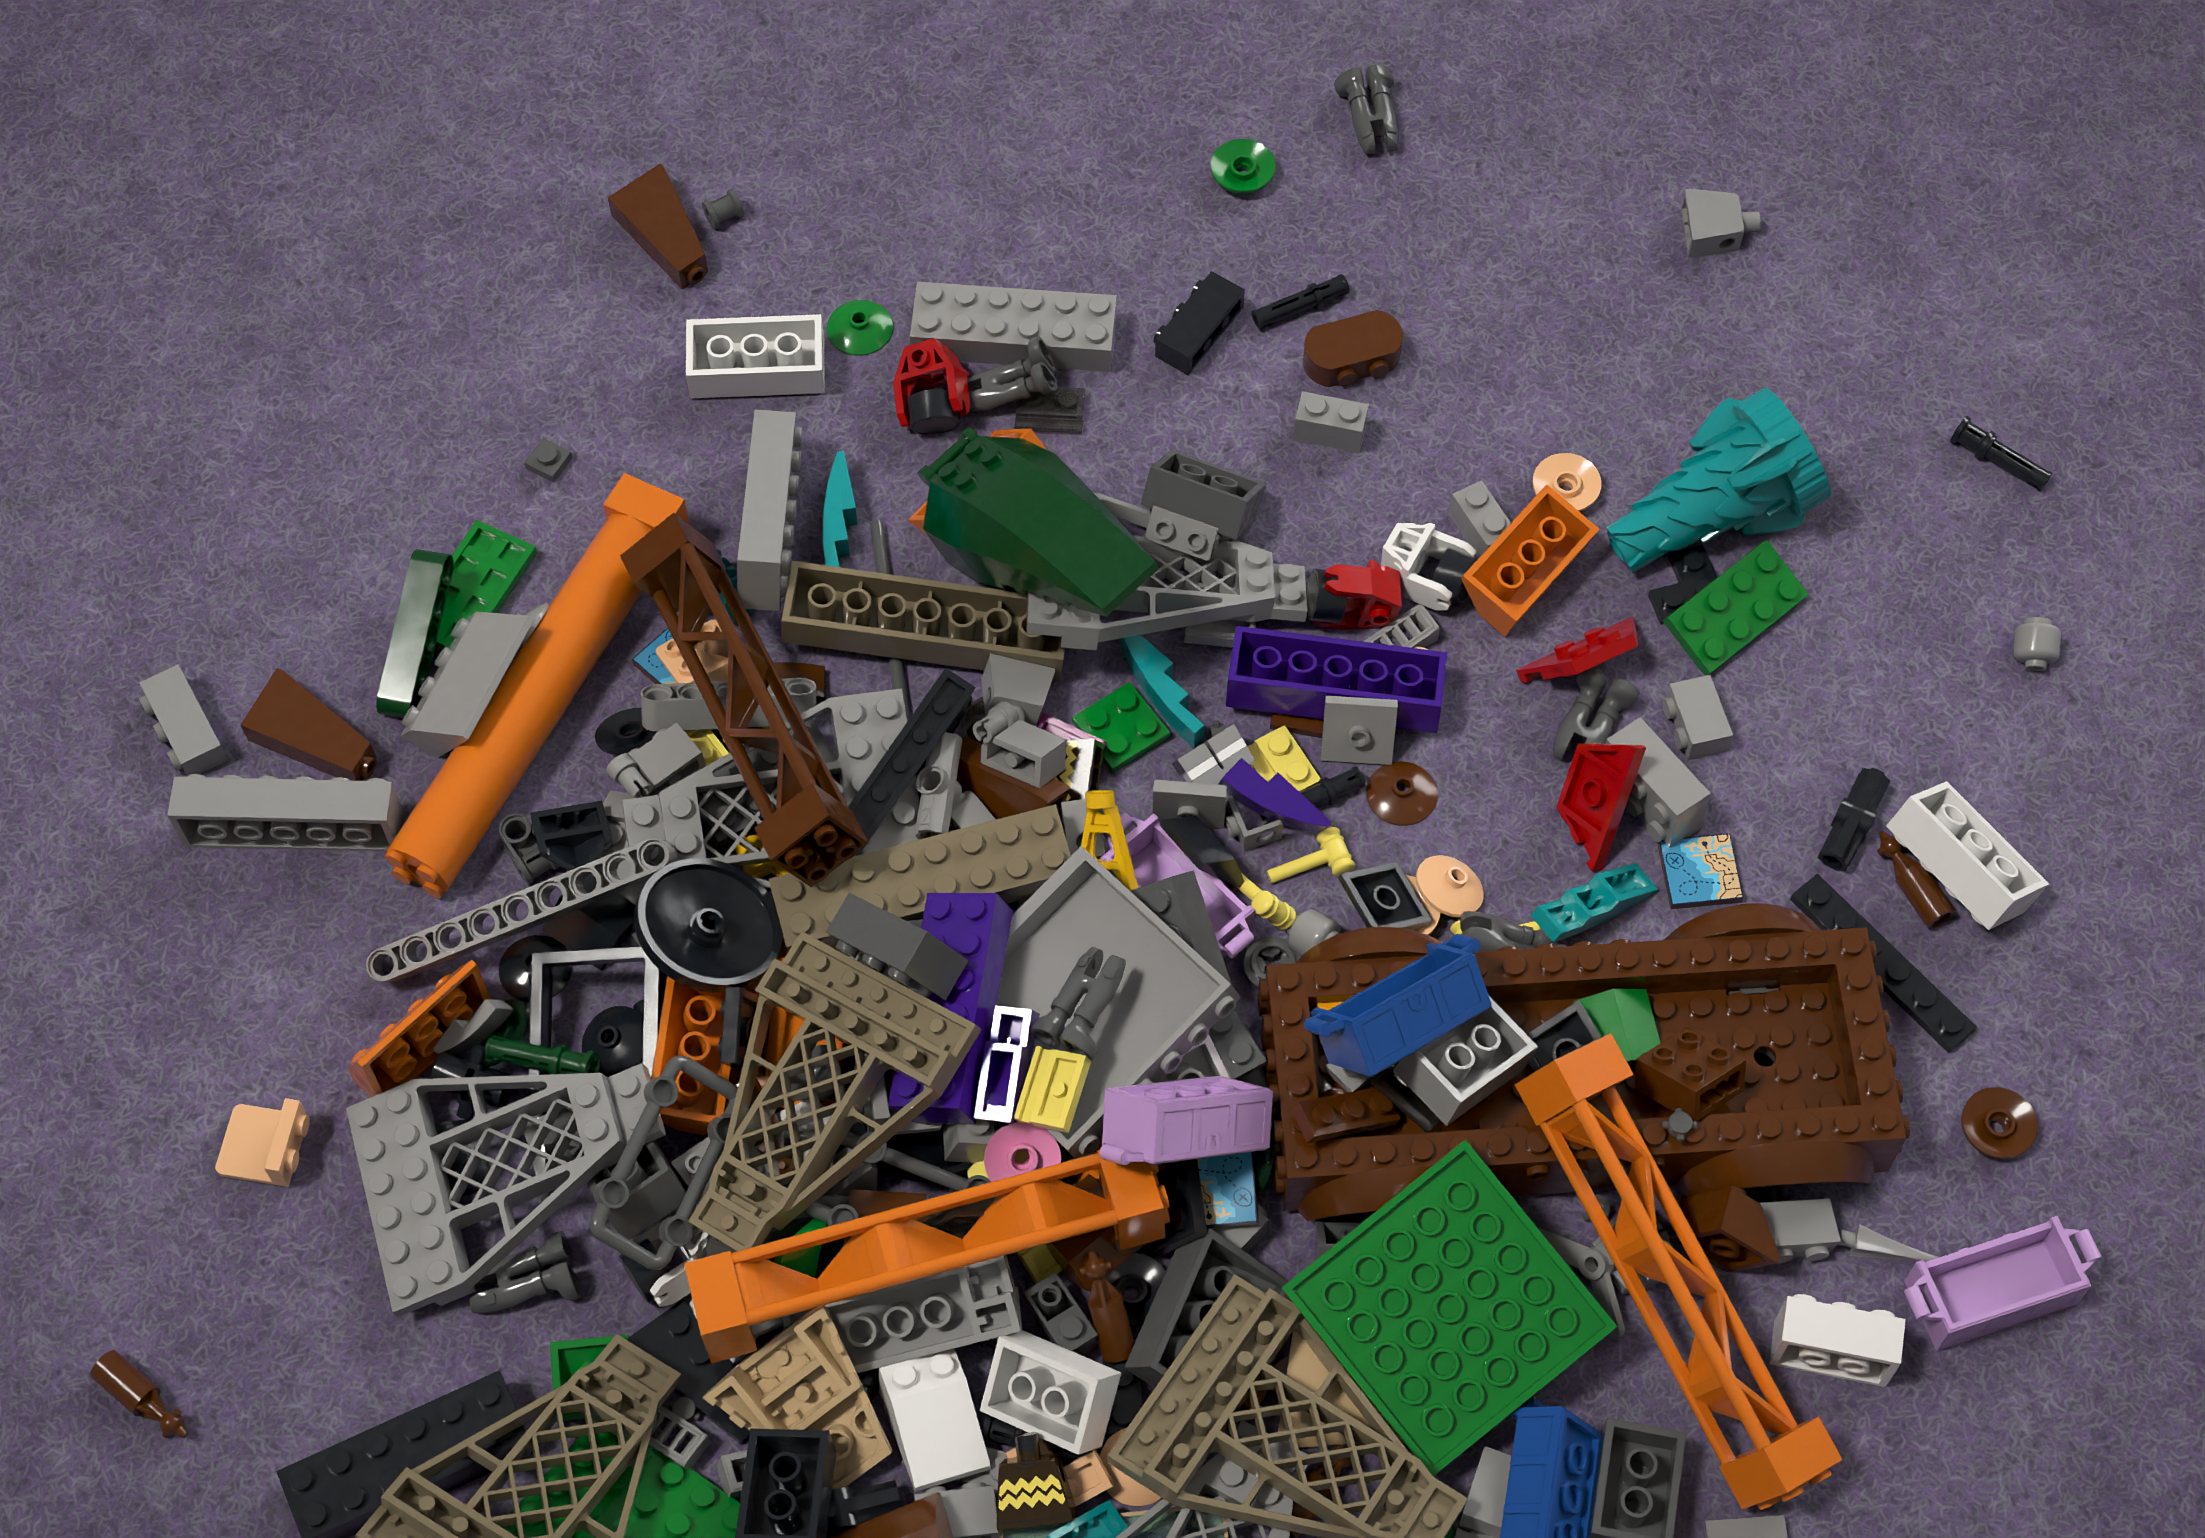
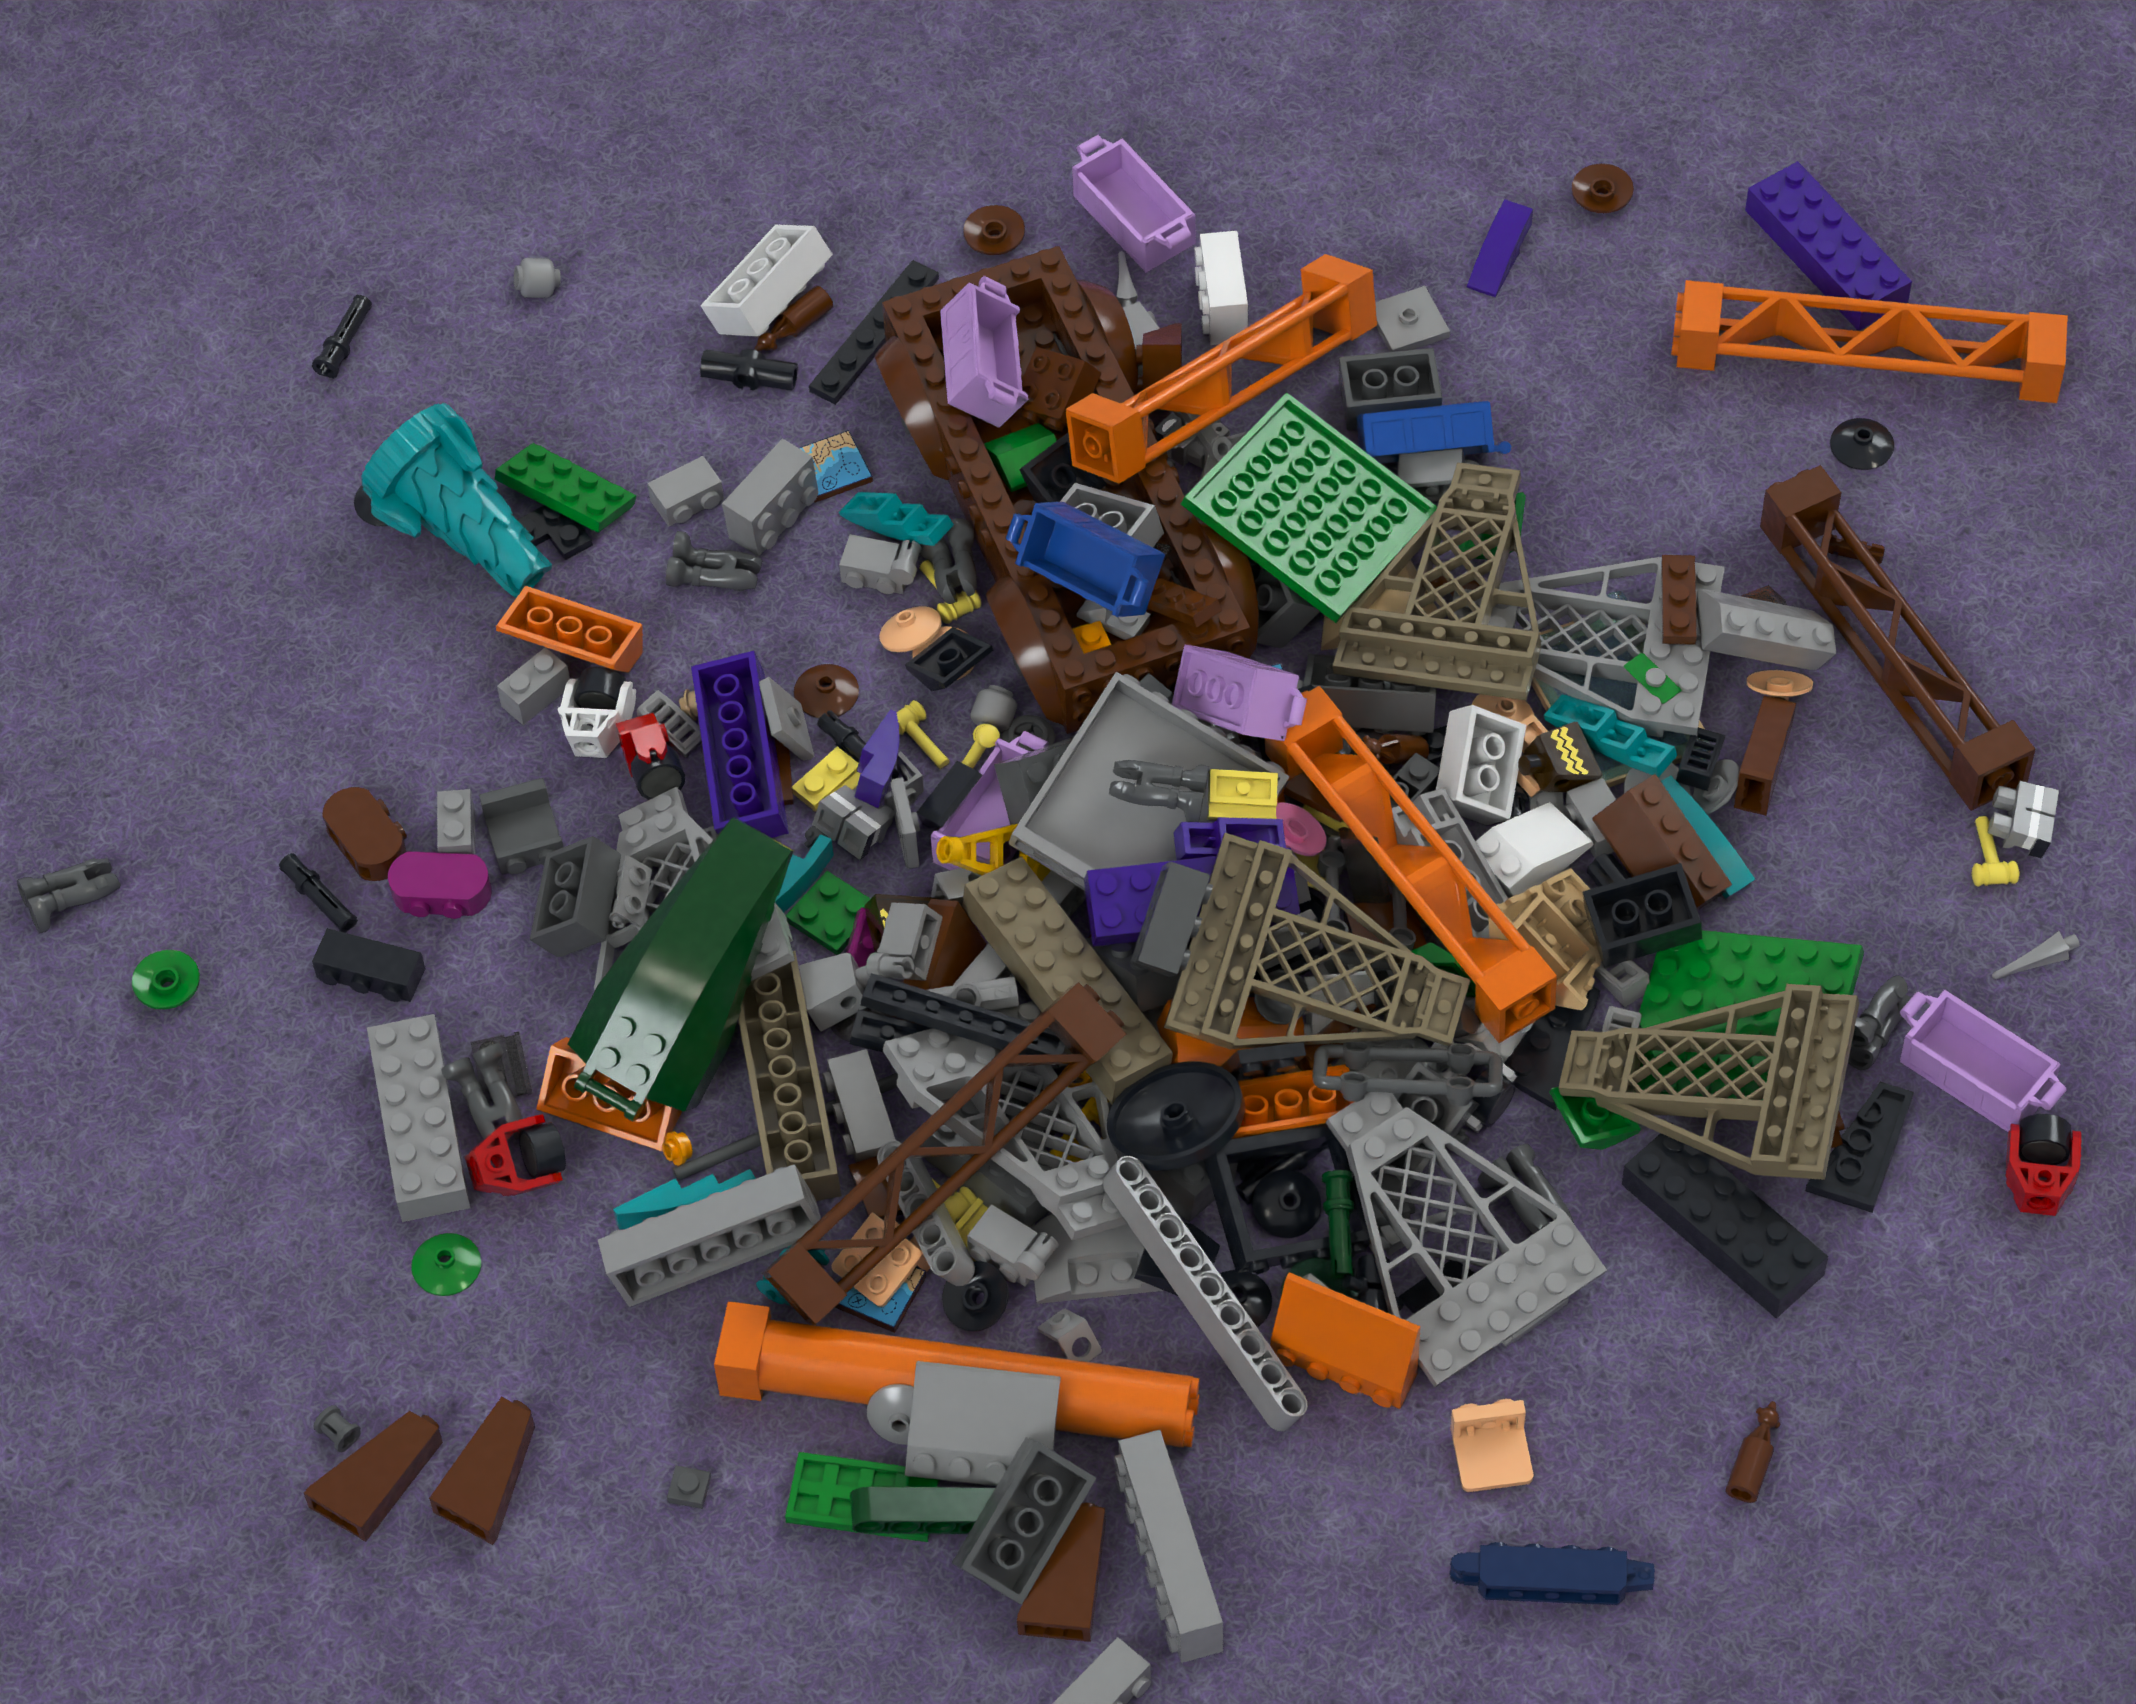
camera: 105 degrees left, 5 degrees down
(105, 1152) = (1552, 1573): none -> dark blue hinge
(359, 689) = (1024, 1520): none -> dark grey brick
(523, 851) = (1128, 1337): dark grey piece -> none
(557, 795) = (1065, 1329): none -> light grey bracket
(572, 834) = (1103, 1295): black slope -> none
(626, 306) = (485, 1473): none -> reddish brown slope
(755, 356) = (520, 1327): white brick -> none
(876, 674) = (858, 1104): none -> light grey brick
(899, 526) = (677, 1147): none -> light orange plate
(1270, 397) = (439, 884): none -> magenta brick
(1314, 484) = (520, 825): none -> dark grey panel
(1545, 872) = (879, 564): none -> light grey hinge
(1569, 471) = (466, 625): light nougat dish -> none
(1584, 654) = (649, 576): red wing -> none
(1598, 794) = (795, 529): red wing -> none
(1679, 1124) = (1108, 378): dark grey piece -> none
(1714, 222) = (139, 587): light grey torso -> none
(1753, 1004) = (982, 352): none -> lavender container

